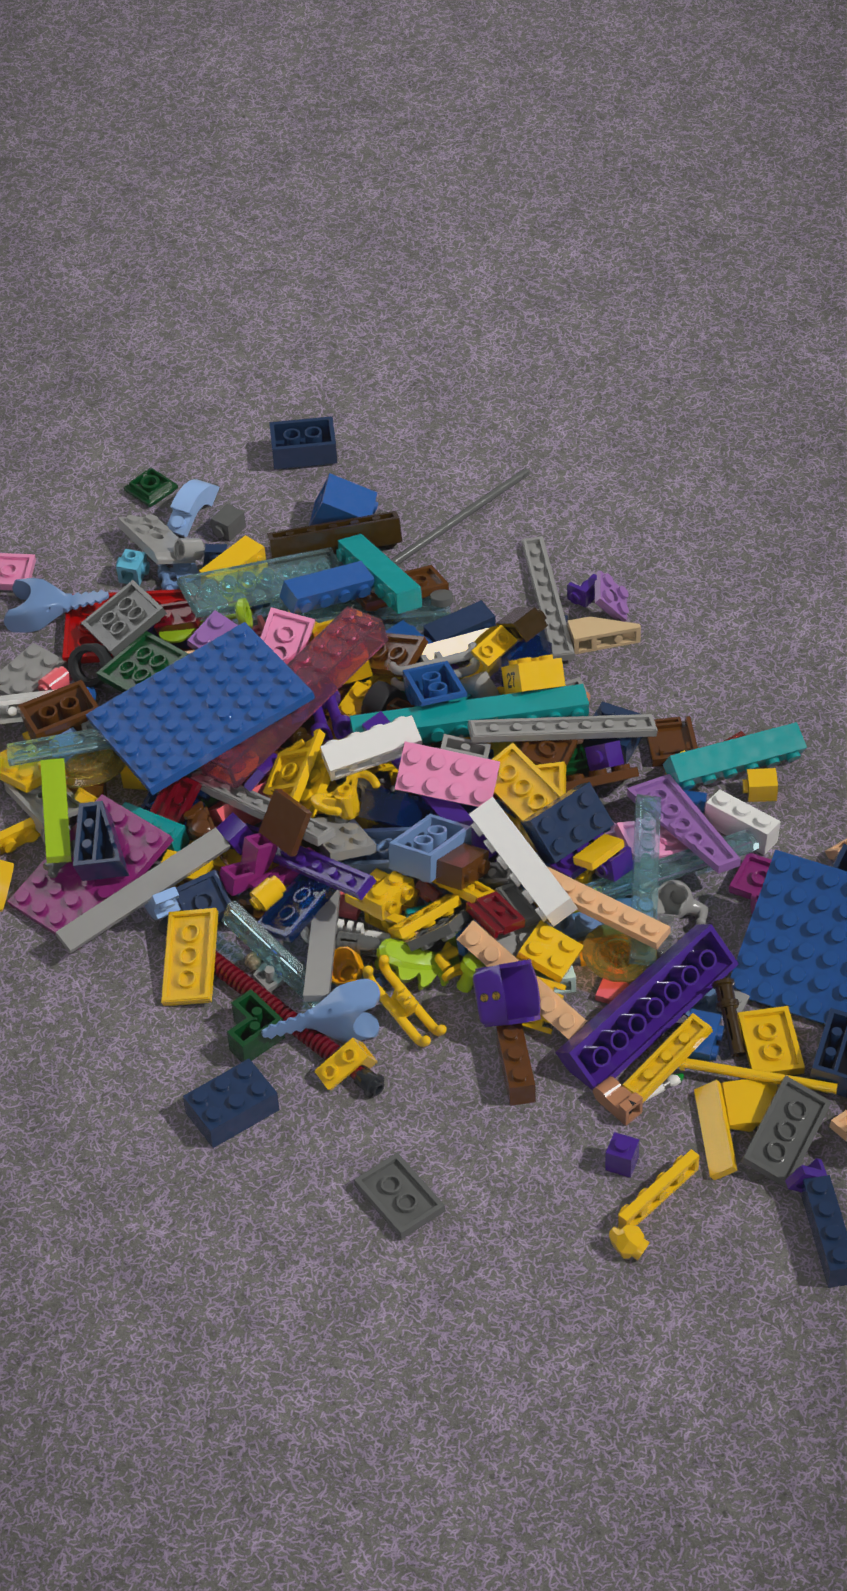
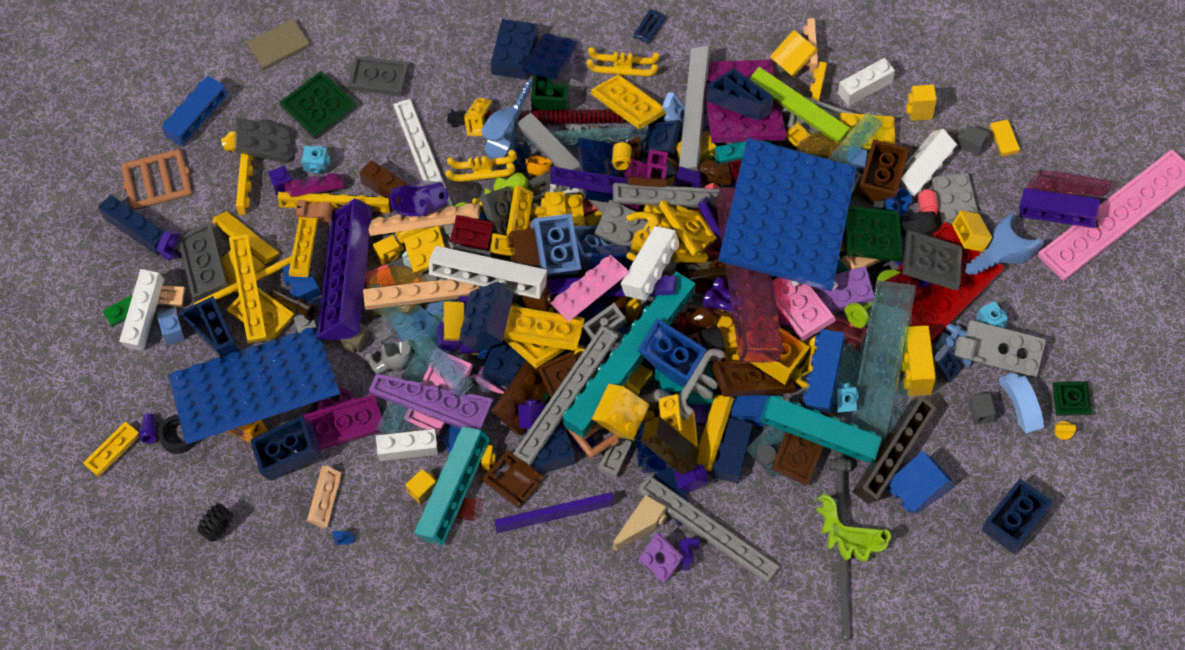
camera: 135 degrees right, 15 degrees up
(56, 627) = (971, 231): none -> yellow brick
(71, 1031) = (643, 37): none -> dark blue tile
(142, 1007) = (622, 63): none -> yellow piece
(186, 472) = (1064, 430): none -> yellow plate
(210, 1051) = (550, 56): none -> clear blue plate
(440, 508) = (850, 539): none -> lime animal
(441, 1082) = (418, 143): none -> white tile
(468, 1329) = (278, 44): none -> dark tan tile
(497, 1215) = (317, 104): none -> dark green plate
(563, 1147) = (315, 159): none -> medium azure brick
(579, 1085) = (378, 204): none -> yellow plate
(583, 1001) = (388, 249): none -> yellow brick
(592, 1117) = (314, 184): none -> magenta plate
(600, 1209) = (262, 140): none -> dark grey plate
(643, 1310) = (194, 110): none -> blue brick
(665, 689) = (553, 512): none -> dark purple tile
(755, 1308) = (142, 163): none -> nougat bar
(766, 1055) = (247, 288): none -> yellow plate

